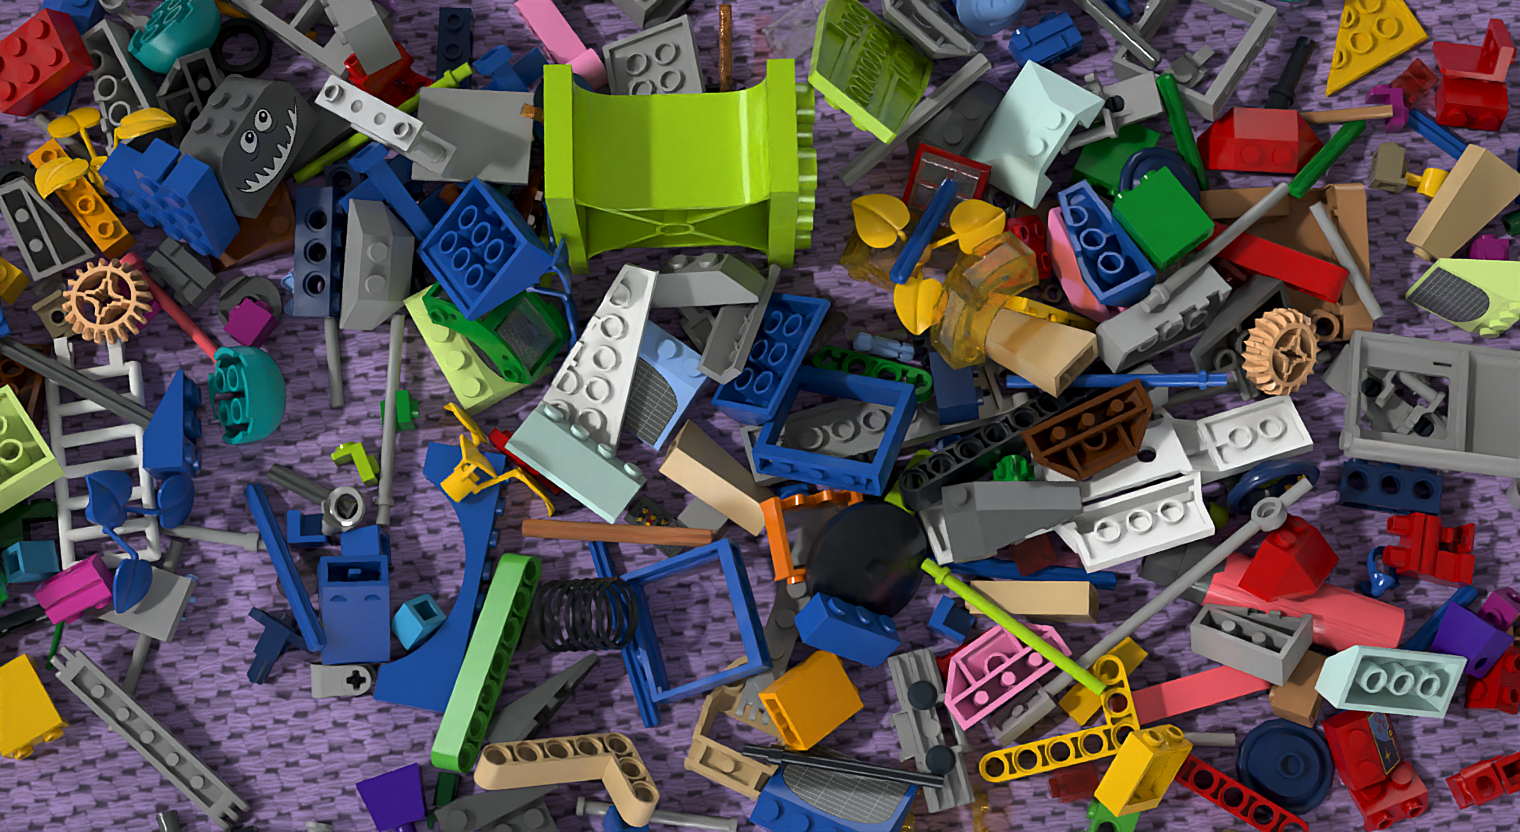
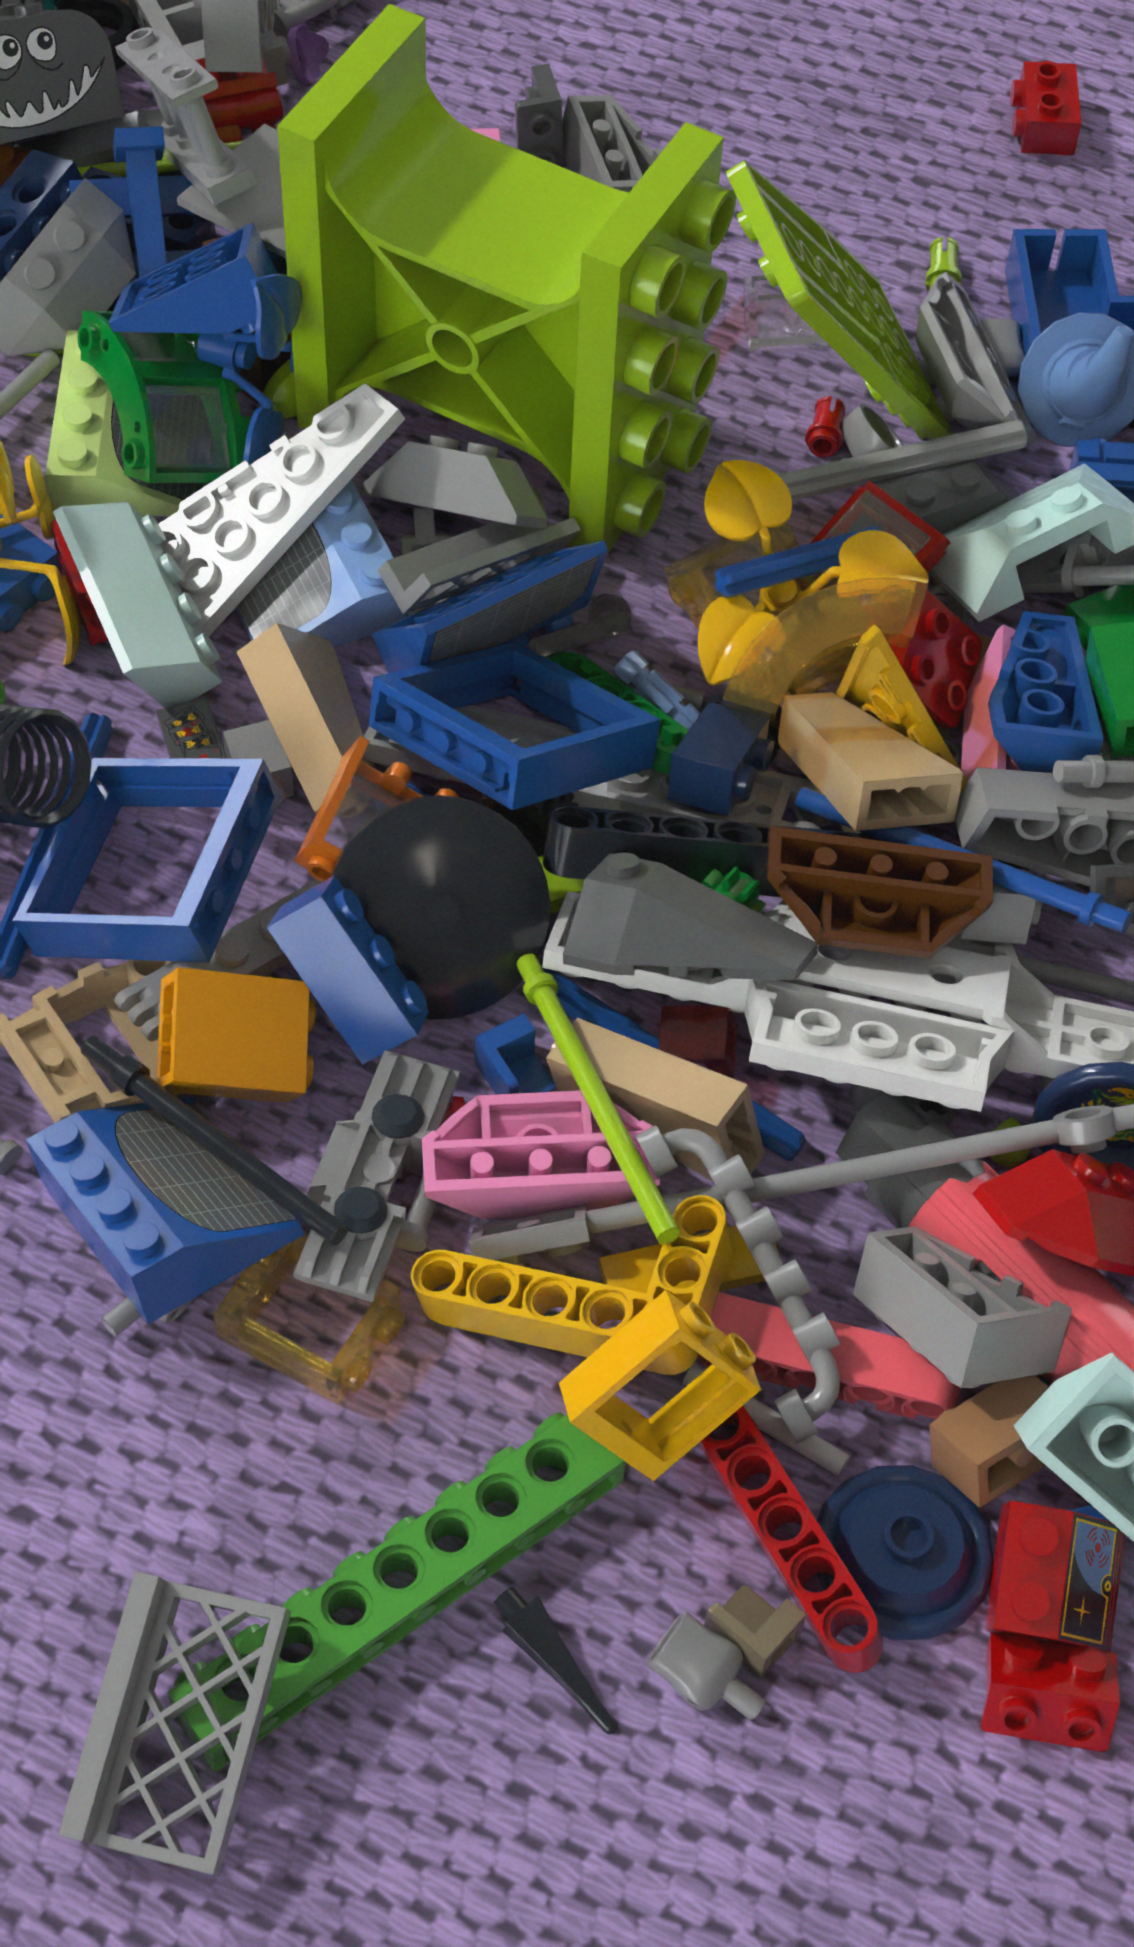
camera: 30 degrees right, 20 degrees down
(617, 533) = (121, 706): nougat axle -> none
(1073, 782) = (537, 1369): clear red brick -> none
(1140, 658) = (784, 1280): none -> light grey bar

